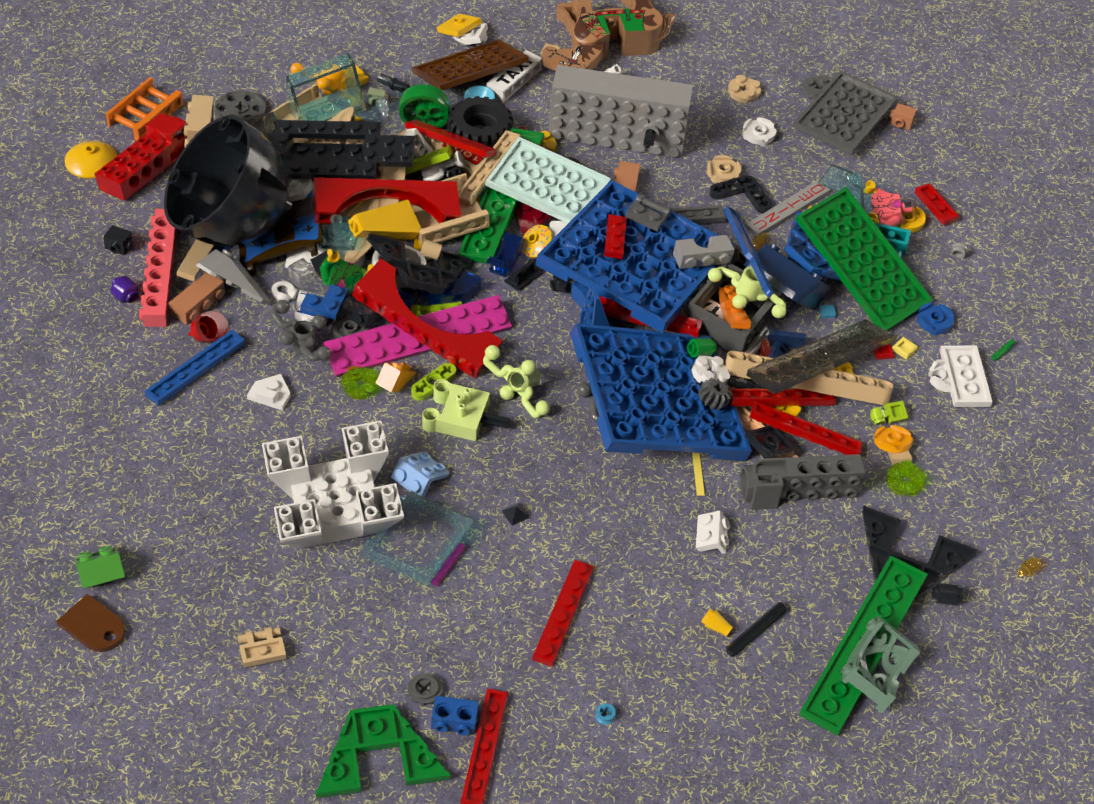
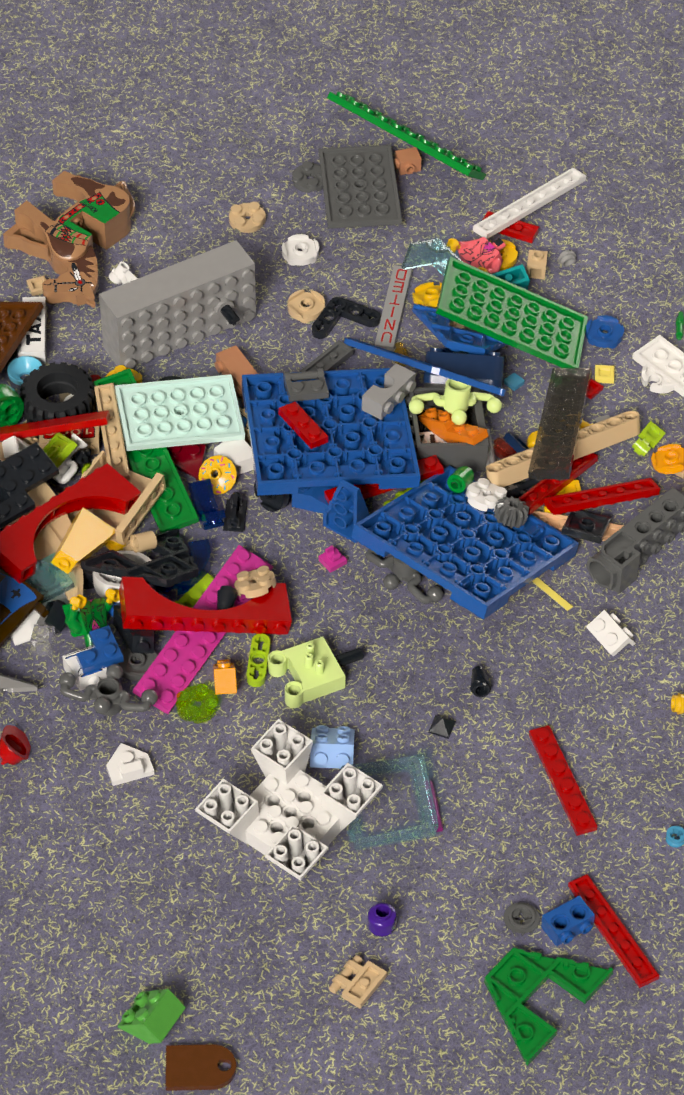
camera: 35 degrees left, 0 degrees up
(194, 368) = (39, 789): blue plate -> none
(293, 292) = (41, 674): white piece -> none
(321, 615) = (382, 919): none -> dark purple head
(448, 322) = (226, 597): none -> black cone
(477, 324) = (255, 582): none -> tan plate
(516, 383) = (344, 614): yellowish green wheel -> none
(560, 347) = (332, 559): none -> dark pink tile
(574, 501) = (480, 683): none -> black cone
(788, 339) = (513, 425): dark blue tile -> none
(919, 100) = (404, 133): none -> green plate
(929, 240) = (537, 264): none -> tan brick
(968, 195) = (529, 203): none -> white tile

